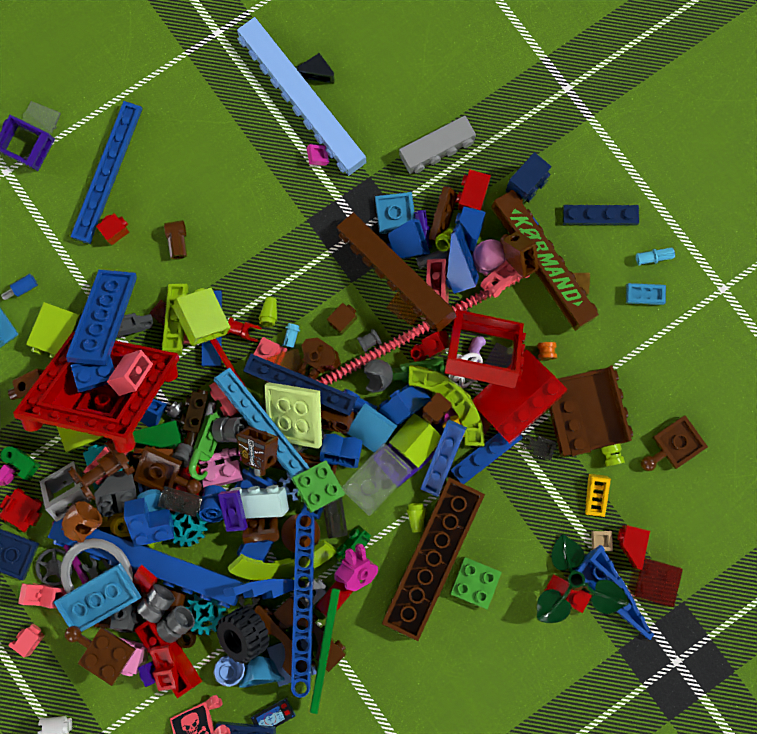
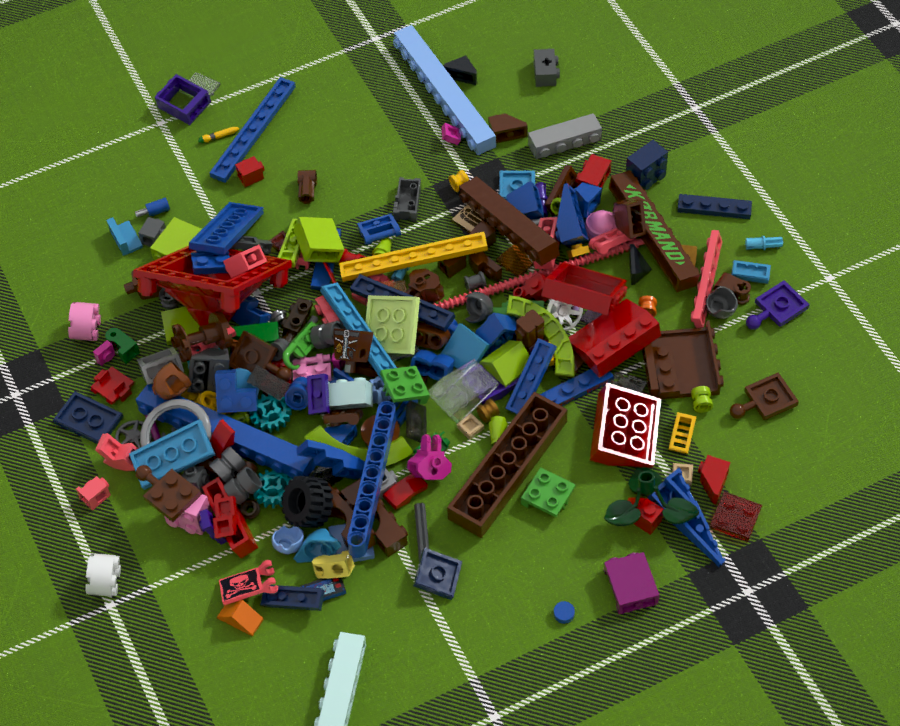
camera: 10 degrees right, 25 degrees down
(24, 318) = (151, 231): none -> dark grey brick
(70, 182) = (207, 138): none -> yellow piece
(258, 283) = (378, 228): none -> blue plate
(278, 696) = (333, 565): none -> light yellow leg
(284, 244) = (407, 199): none -> dark grey piece
(303, 325) = (413, 256): none -> yellow plate
(324, 653) = (386, 523): green tile -> none
(335, 215) = (457, 180): none -> yellow wheel
(351, 262) = (467, 219): none -> piece
(360, 648) = (421, 527): none -> dark grey axle
(365, 291) = (480, 261): none -> reddish brown arch
(374, 141) = (507, 127): none -> reddish brown slope
(381, 688) = (437, 573): none -> dark blue tile
(388, 512) = (470, 426): none -> tan tile
(404, 65) = (545, 67): none -> dark grey brick
(404, 495) = (487, 410): none -> pearl gold wheel
(470, 293) = (578, 250): none -> yellow plate
(507, 710) = (564, 612): none -> blue tile
(531, 299) = (638, 265): none -> black slope
(542, 500) = (625, 427): none -> red slope
(567, 672) = (631, 582): none -> magenta panel
(602, 302) = (708, 273): none -> coral plate
(622, 341) = (721, 303): none -> dark grey hair
(627, 317) = (736, 285): none -> reddish brown piece
(679, 331) = (779, 304): none -> dark purple plate

